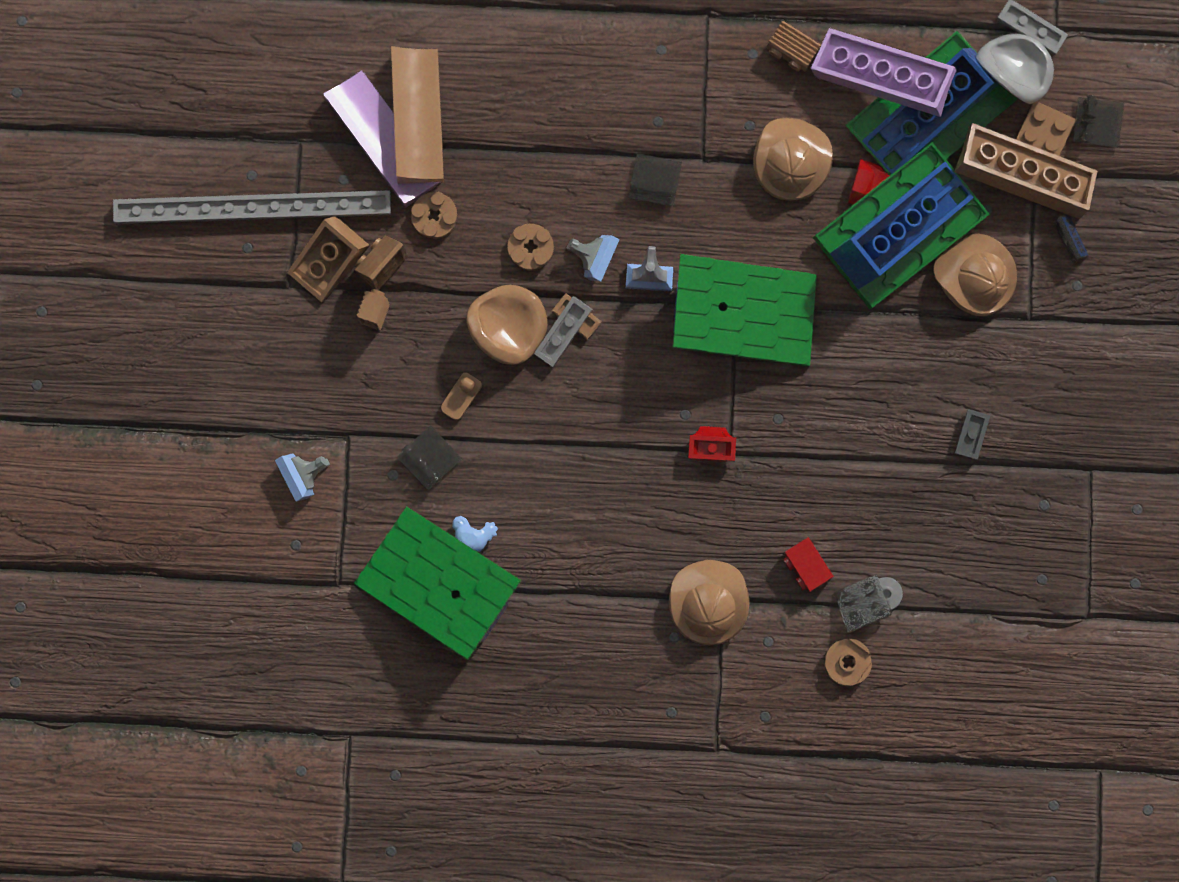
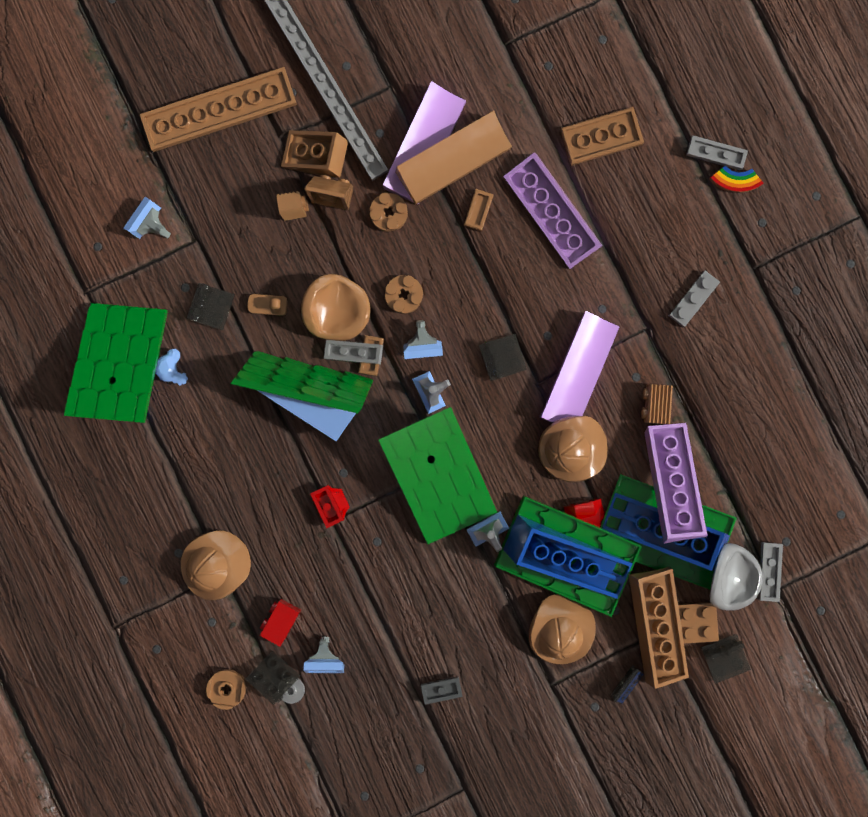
camera: 65 degrees right, 5 degrees up
(223, 334) = (218, 109): none -> medium nougat plate
(484, 120) = (478, 210): none -> medium nougat tile
(529, 44) = (552, 210): none -> lavender arch
(584, 393) = (310, 392): none -> green piece
(711, 106) = (580, 368): none -> lavender arch
(829, 293) = (488, 531): none -> piece
(874, 541) = (323, 660): none -> light blue piece

